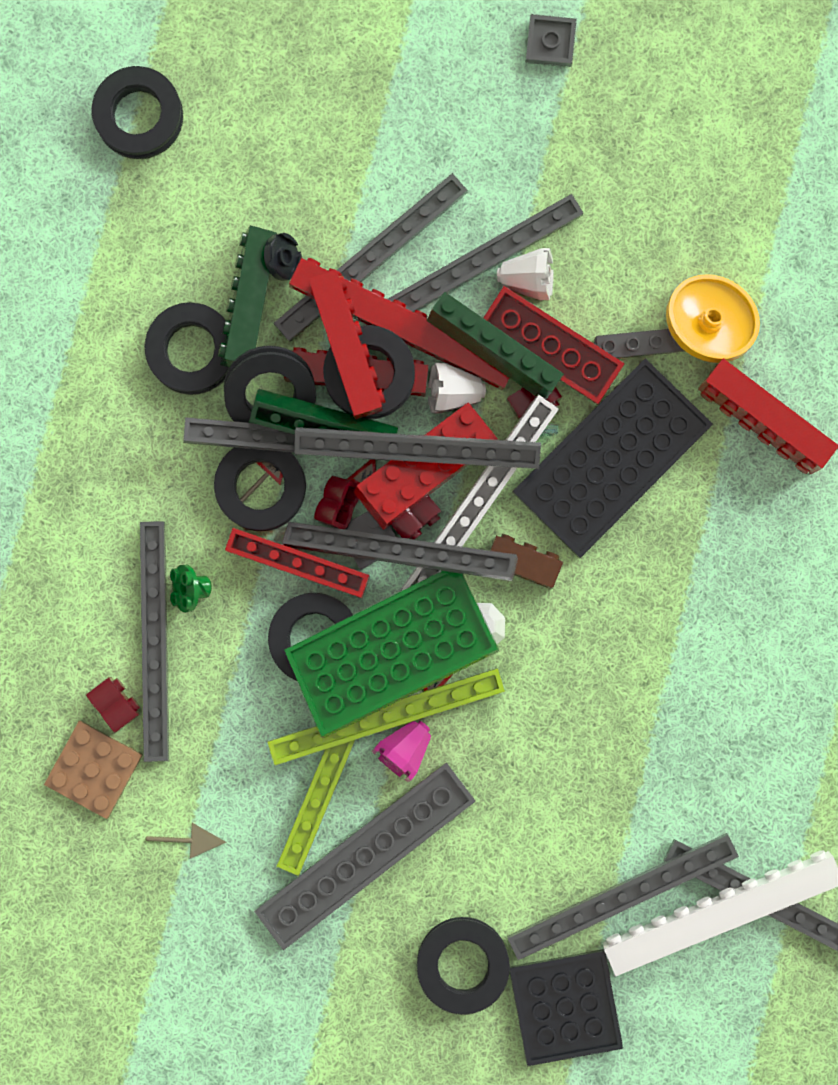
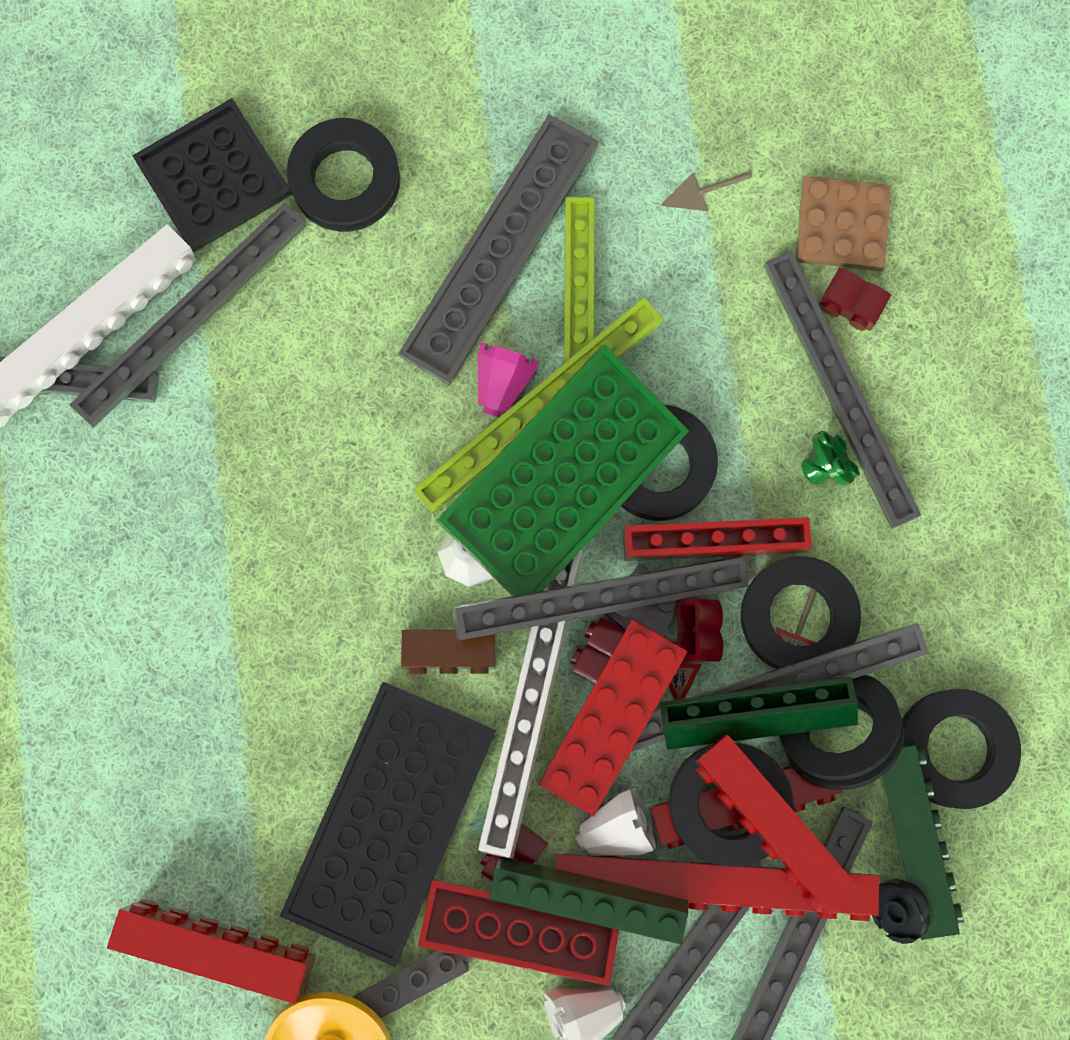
camera: 155 degrees right, 5 degrees down
(417, 448) = (632, 727): dark grey plate -> none

